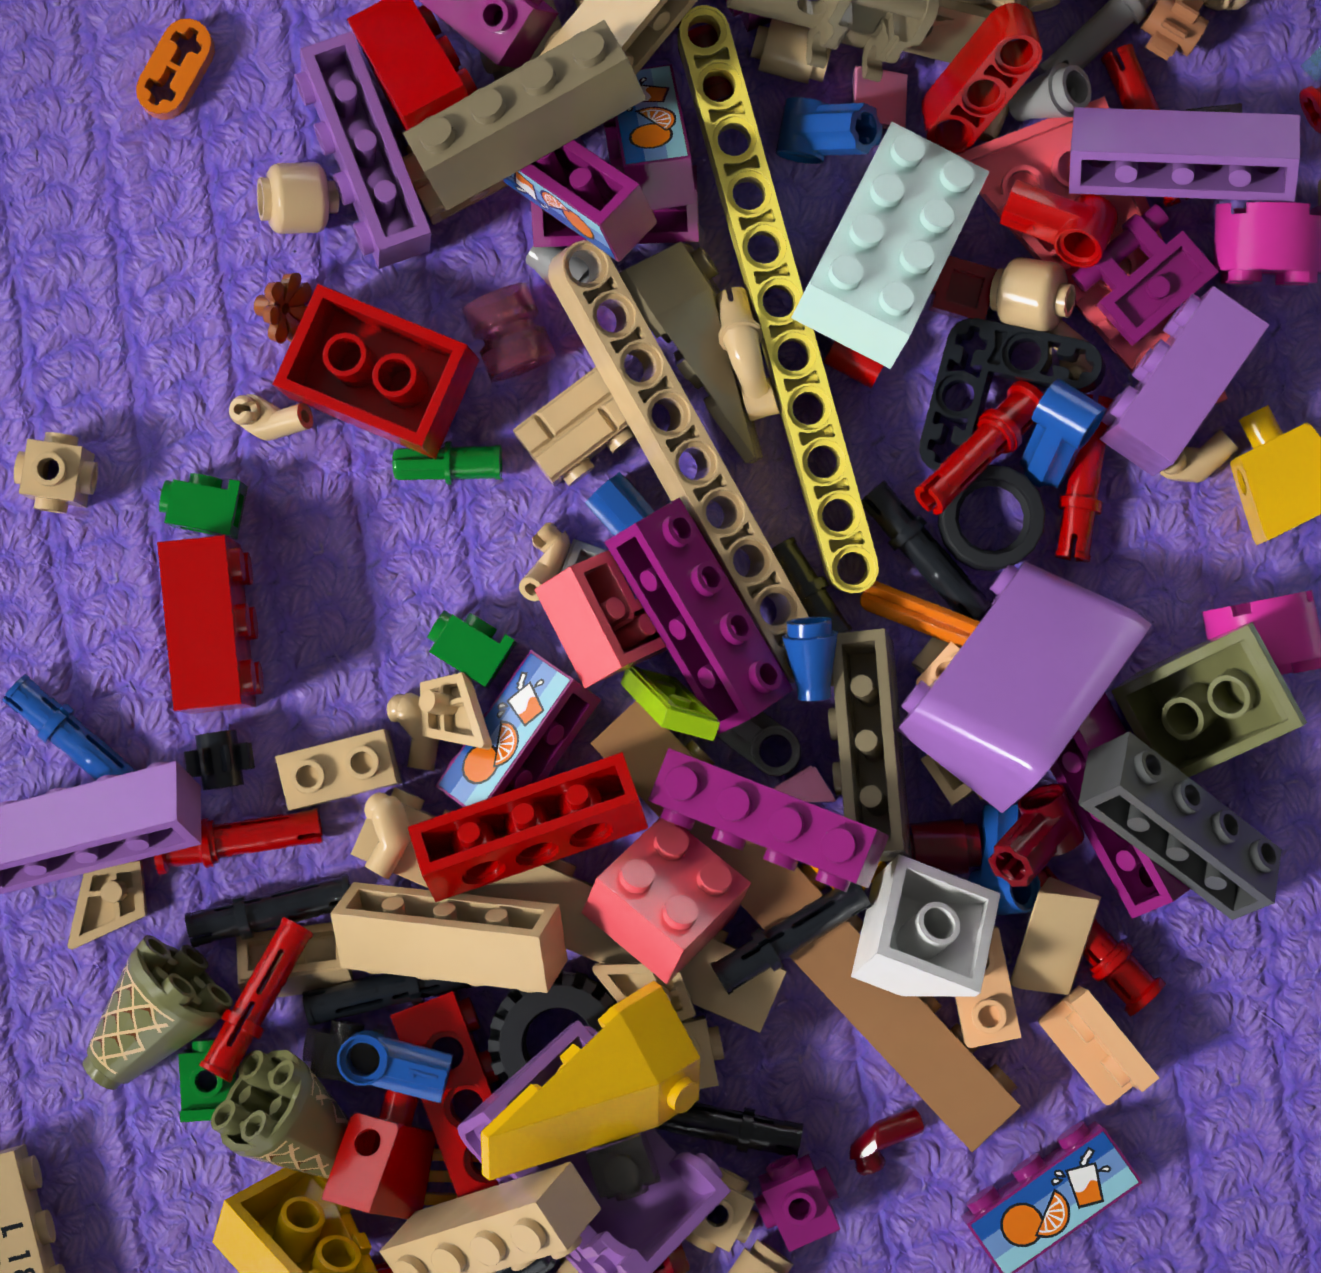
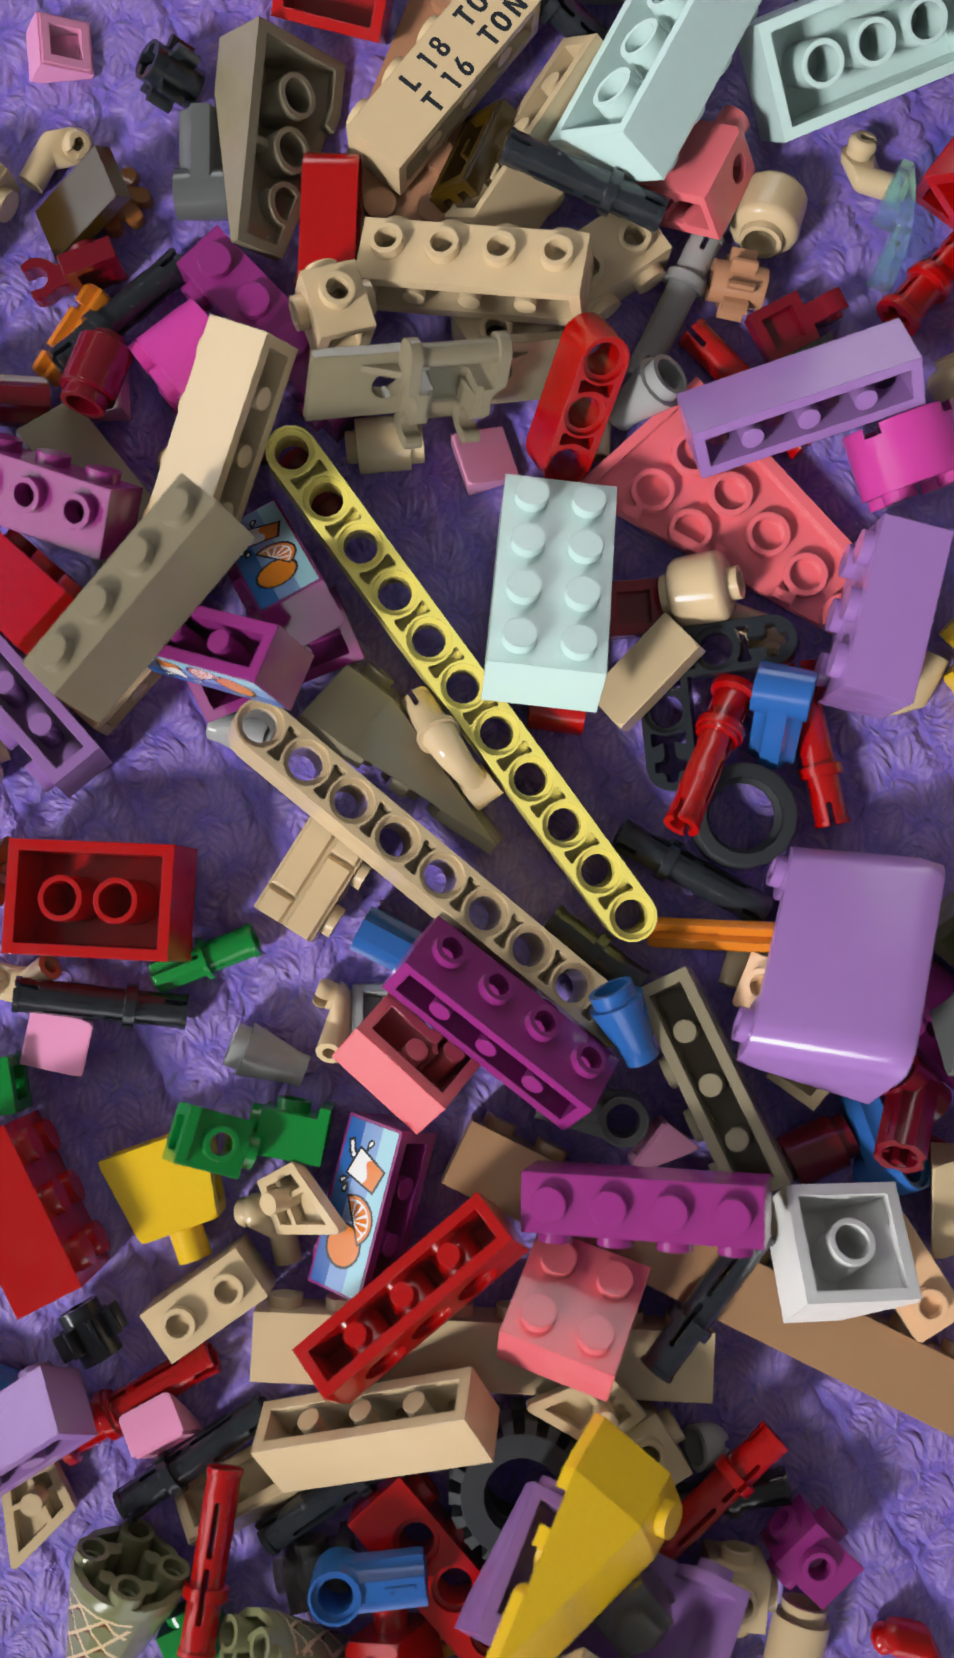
camera: 20 degrees left, 0 degrees up
(249, 868) = (157, 1426): none -> bright pink slope
(285, 487) = (57, 1043): none -> bright pink slope
(340, 658) = (165, 1196): none -> yellow torso
(349, 471) = (100, 1002): none -> black pin
(381, 618) = (191, 1138): none -> green brick
(391, 828) = (275, 1341): tan arm -> none
(469, 572) = (264, 1056): none -> light grey cone
(508, 329) = (216, 813): clear pink wheel -> none
(670, 703) = (507, 1122): lime tile -> none
(737, 1112) = (724, 1486): none -> red pin
(738, 1078) = (704, 1445): none -> light grey hinge
(820, 129) = (438, 507): blue piece -> none
(882, 1134) = (865, 1446): dark red arm -> none
(953, 352) = (648, 672): none -> tan slope
(1075, 227) = (721, 509): red piece -> none
(1156, 286) = (818, 537): magenta plate -> none
(1210, 80) = (791, 323): none -> dark red plate

